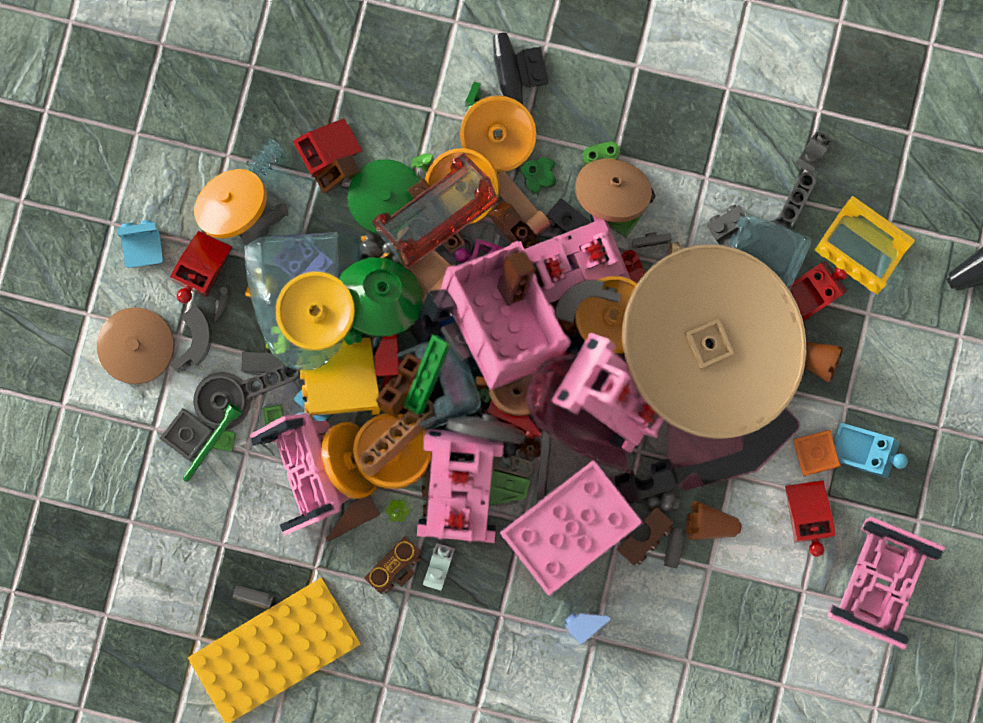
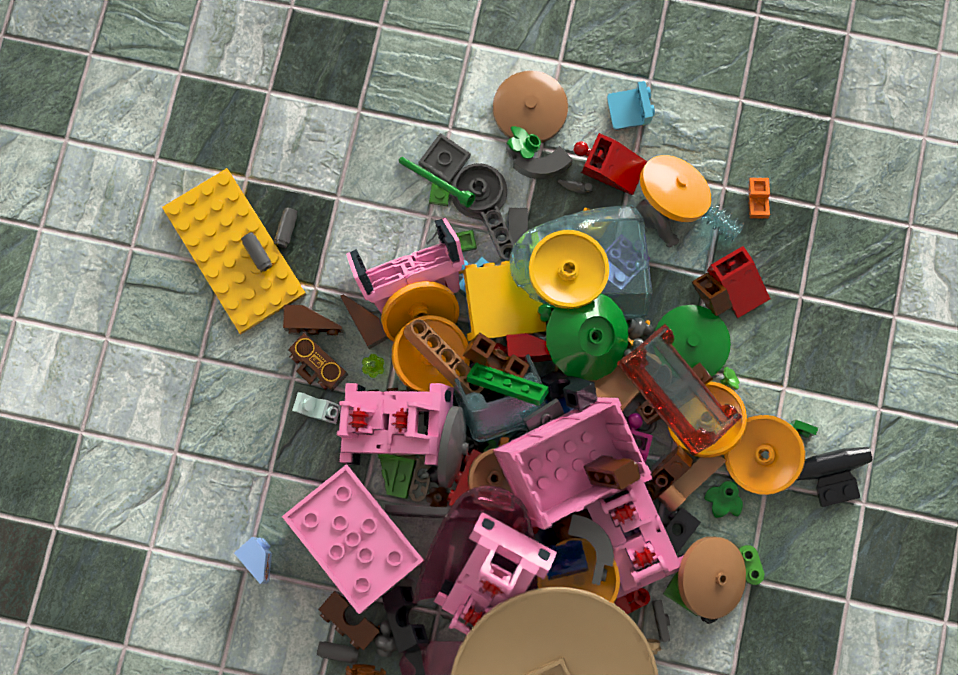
camera: 90 degrees right, 5 degrees down
(175, 353) = (523, 142): none -> plate
(240, 122) = (759, 198): none -> orange slope
(279, 625) = (256, 252): none -> dark grey piece
(349, 577) = (303, 319): none -> reddish brown slope
(596, 321) = (568, 560): none -> clear blue bracket

